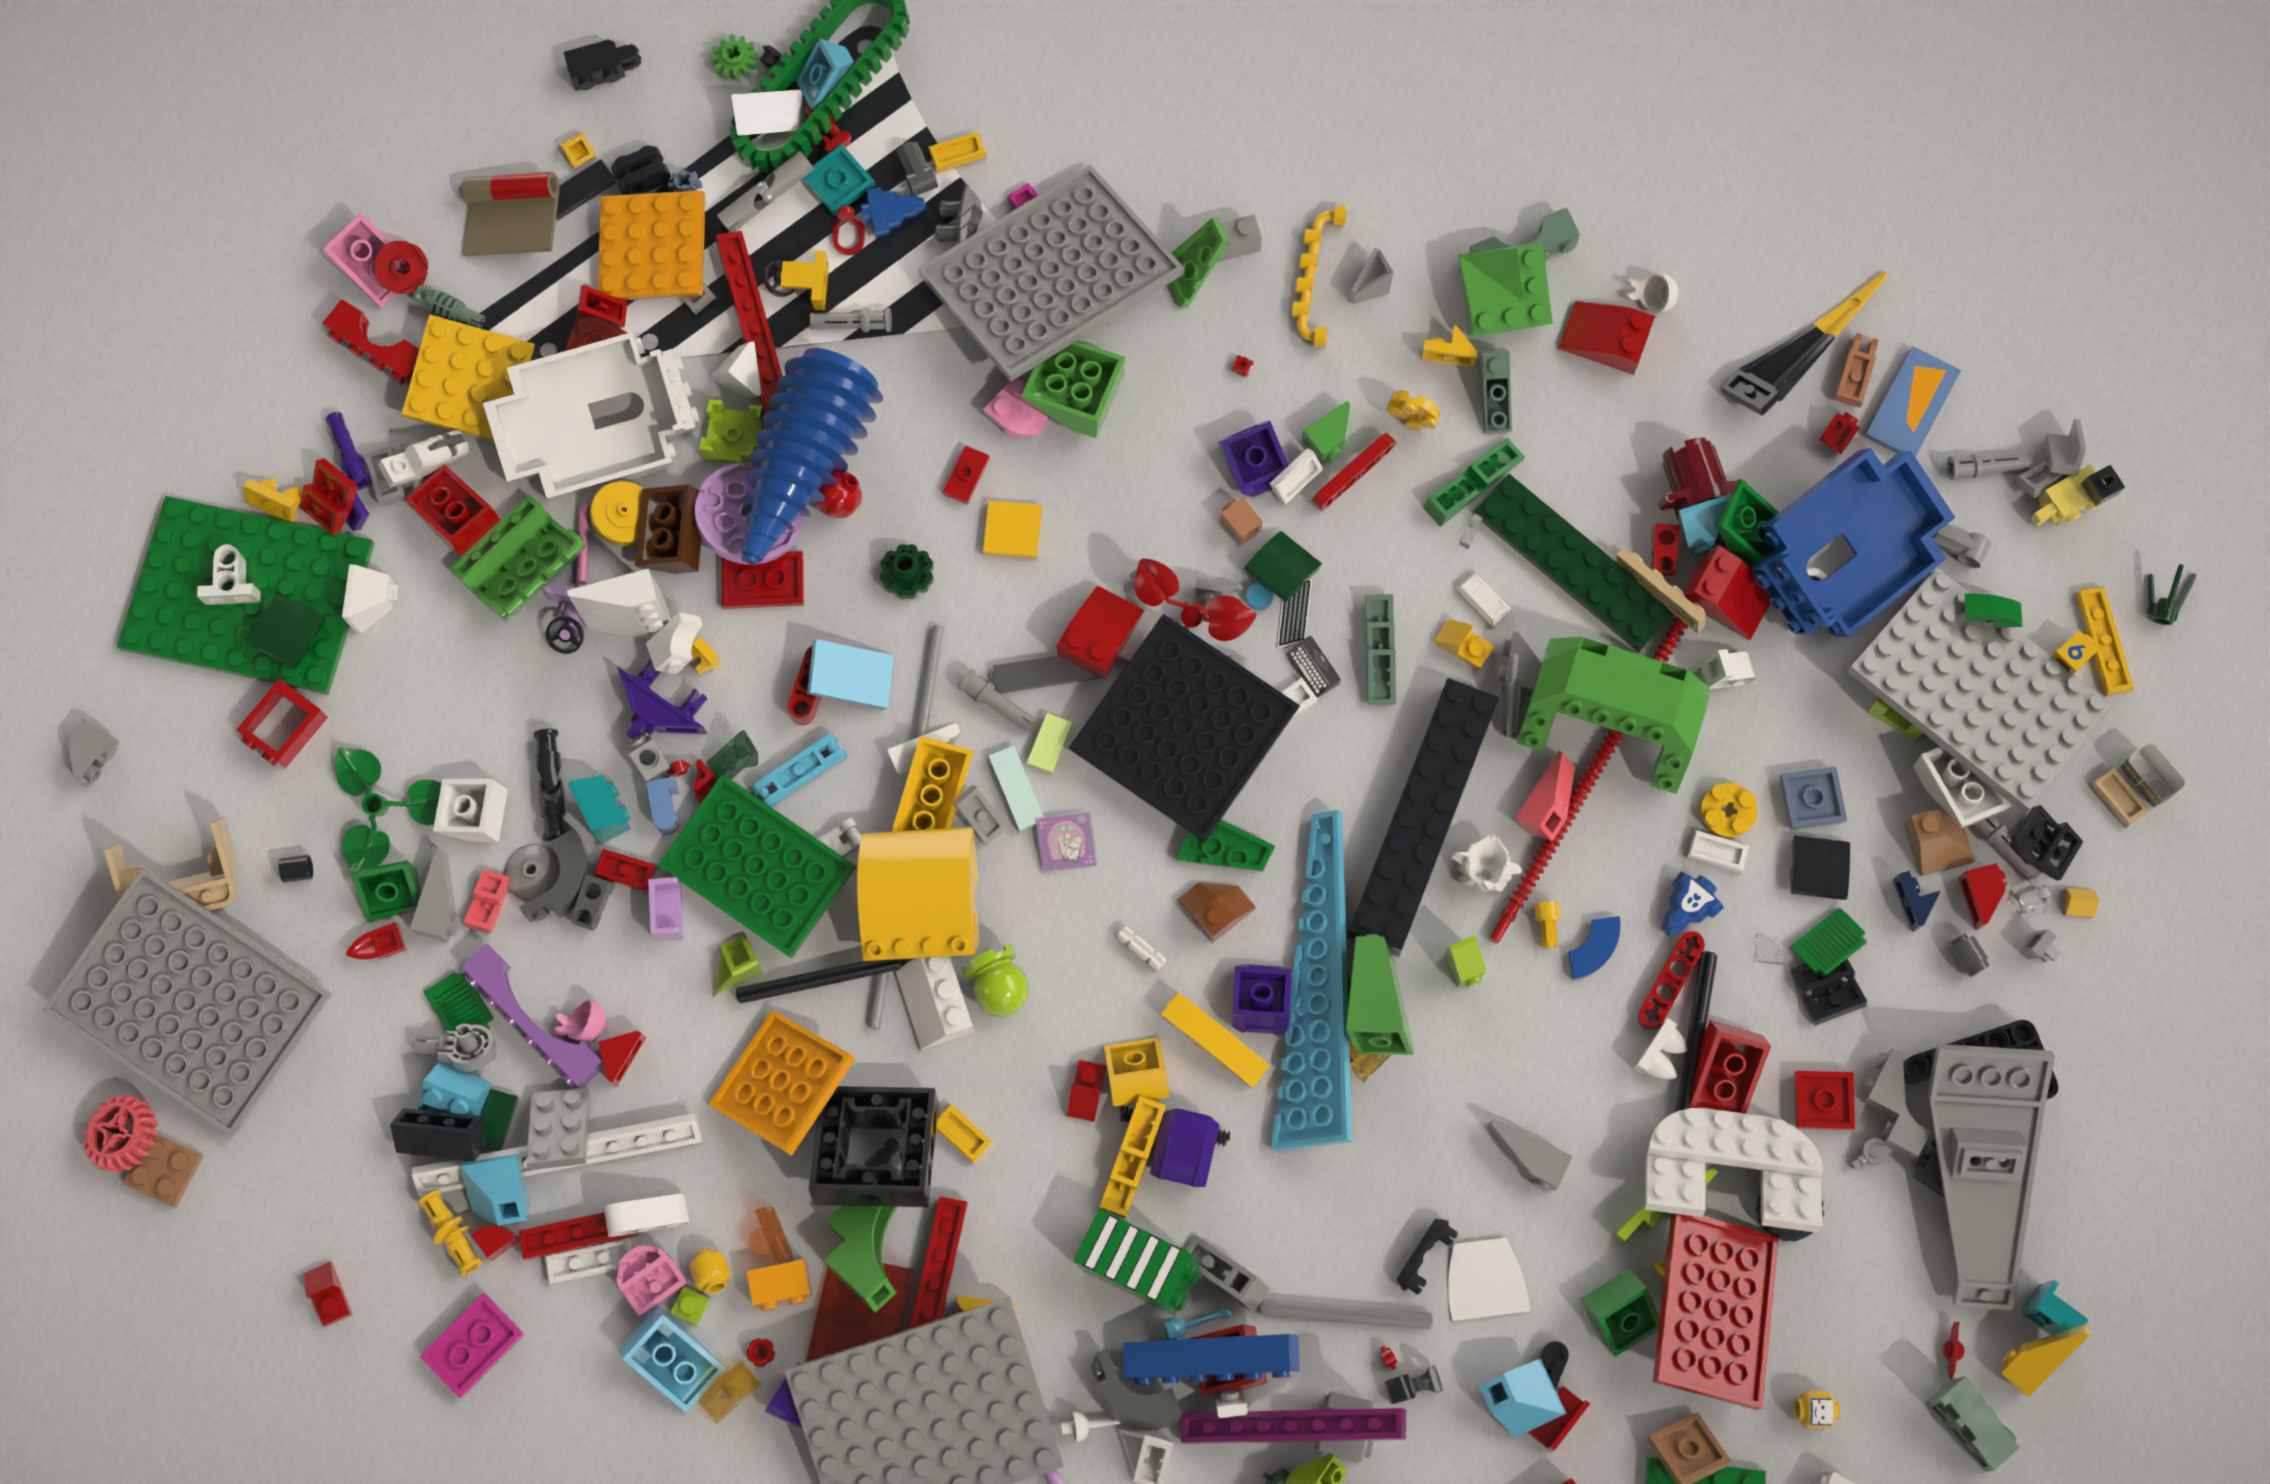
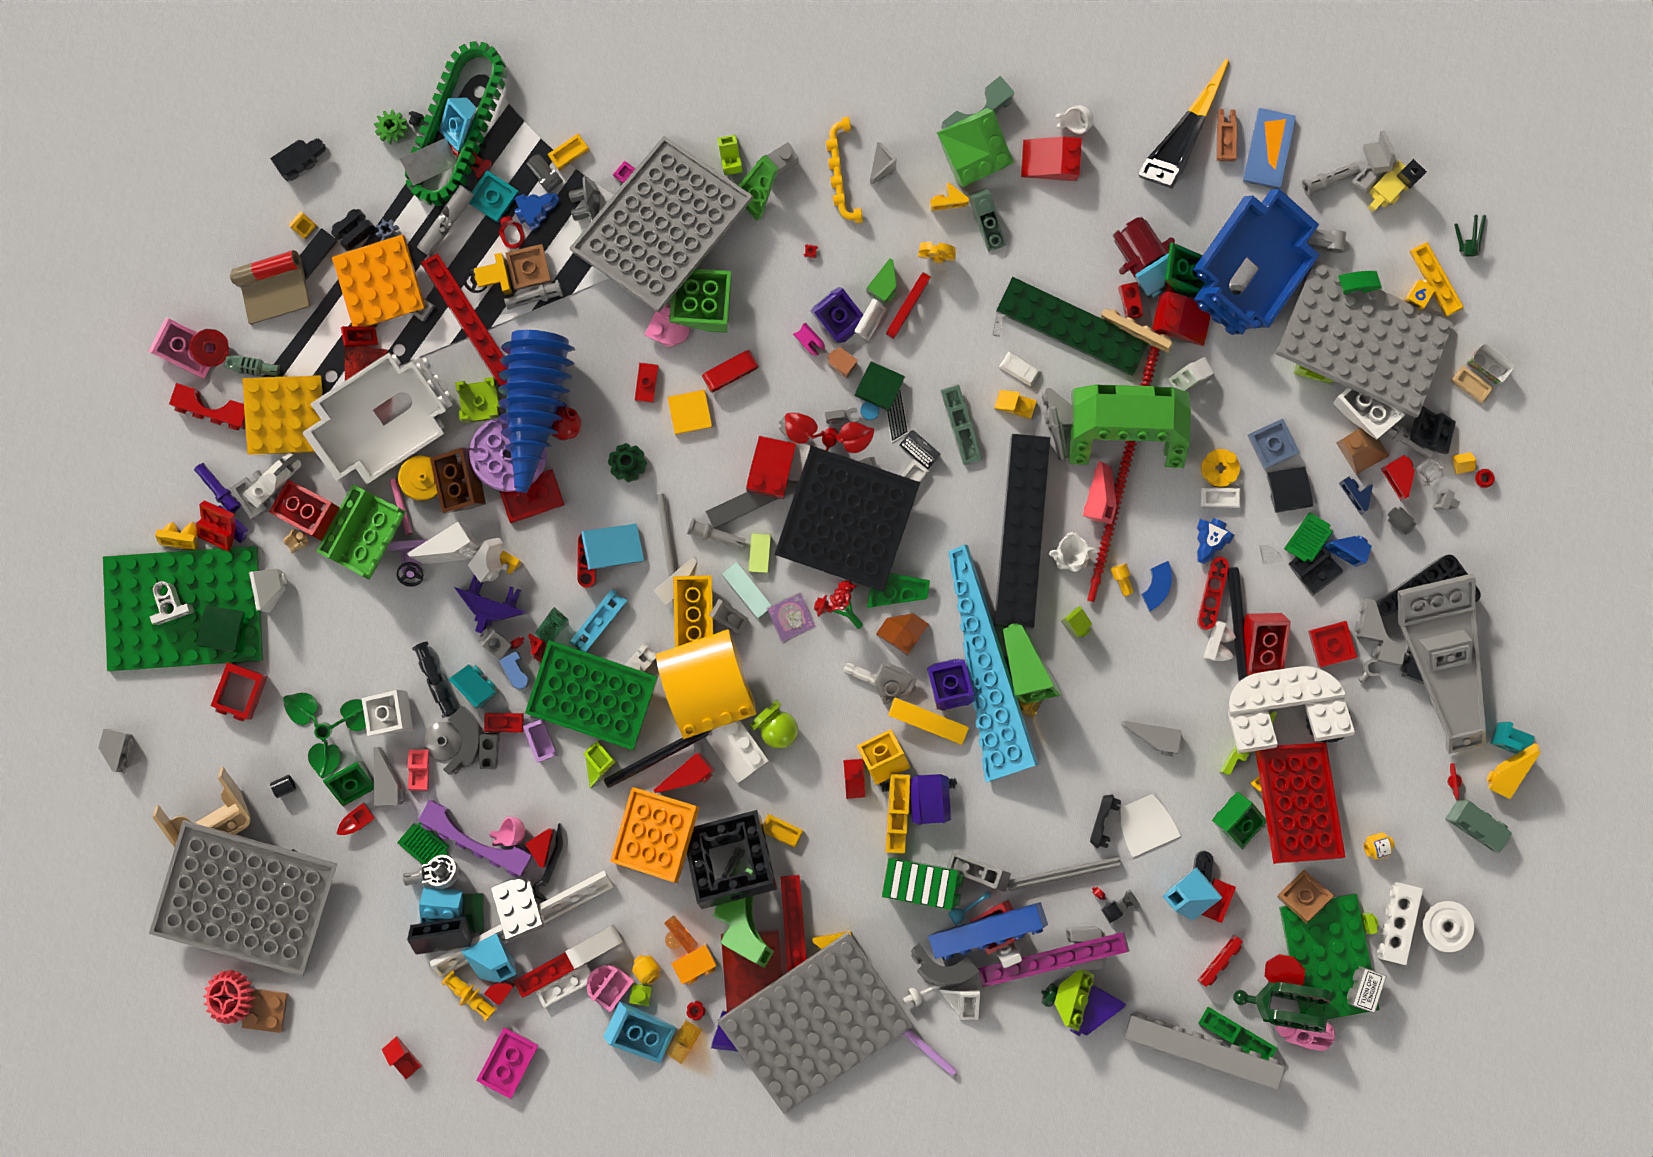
camera: 20 degrees left, 10 degrees up
(427, 547) = (296, 540): none -> tan arm
(626, 1084) = (551, 865): none -> black piece
(740, 372) = (469, 355): white slope -> none
(856, 282) = (528, 267): none -> medium nougat plate
(858, 1013) = (691, 772): none -> red slope
(1084, 490) = (730, 371): none -> red beam
(1139, 832) = (838, 602): none -> red plant
(1171, 213) = (729, 155): none -> lime slope
(1181, 971) = (893, 682): none -> light grey plate
(1205, 478) = (808, 339): none -> dark pink piece
(1473, 482) = (990, 288): green slope -> none
(1840, 432) = (1226, 183): red bracket -> none
(1883, 972) = (1350, 549): none -> blue slope
(2111, 926) = (1490, 478): none -> red plate

